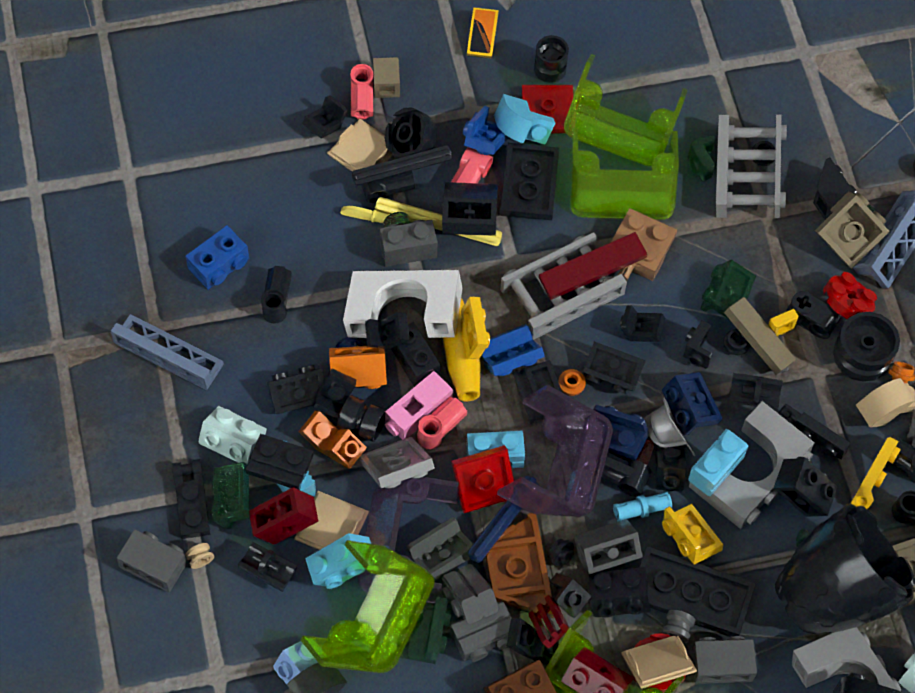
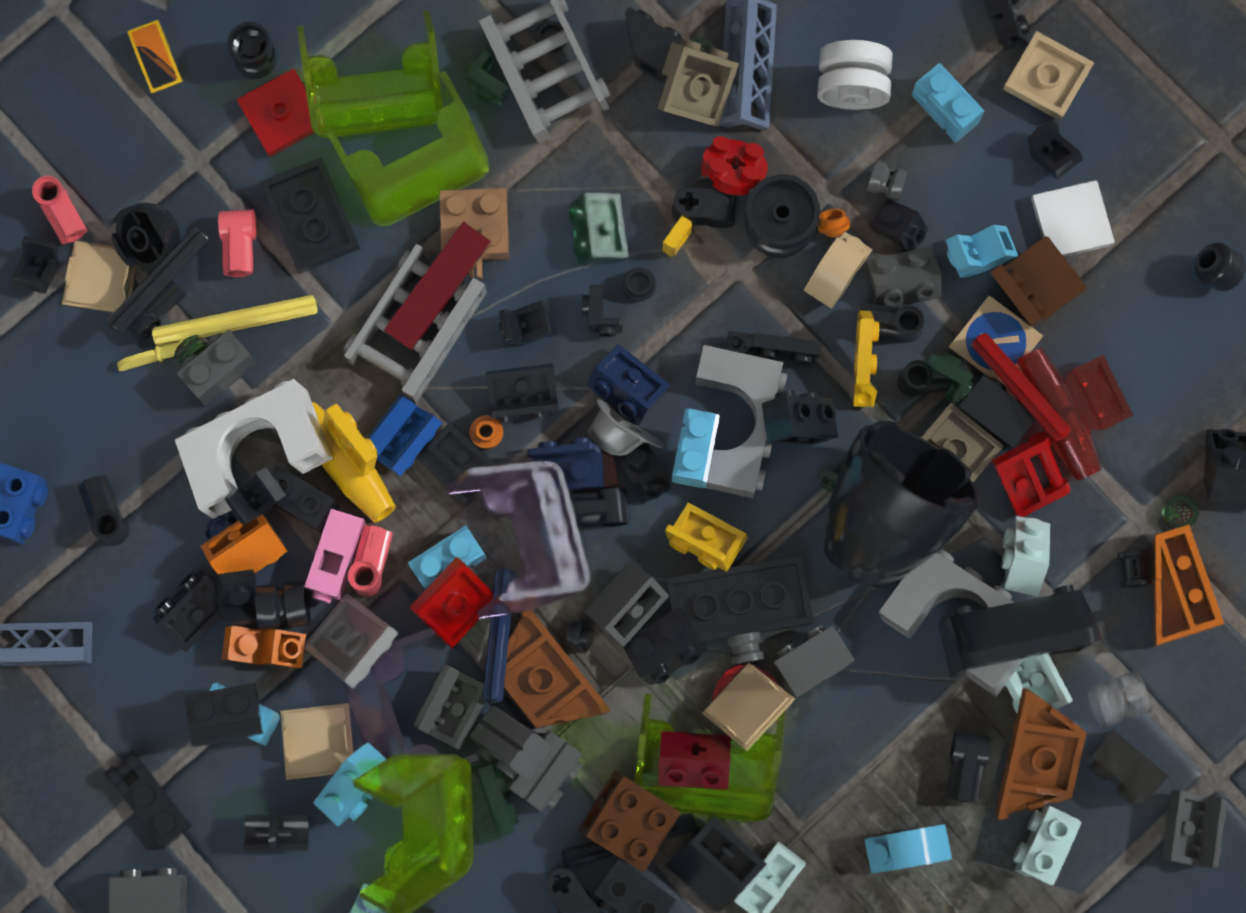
camera: 25 degrees left, 15 degrees up
(199, 555) = (195, 860): tan bush -> none
(230, 434) = (149, 702): light aqua bracket -> none
(230, 494) = (190, 776): clear green bracket -> none
(283, 516) = (262, 769): dark red brick -> none
(386, 77) = (76, 175): dark tan panel -> none
(470, 208) = (262, 291): black slope -> none
(483, 134) = (229, 187): blue bracket -> none
(519, 123) = (261, 153): medium azure brick -> none
(525, 641) = (604, 755): black slope -> none
(543, 614) = (609, 735): dark red tile -> none
(570, 594) = (618, 683): black bracket -> none
(642, 506) = (637, 534): medium azure pin -> none
(755, 389) = (689, 334): black hips -> none
(760, 335) = (661, 266): dark tan tile -> none

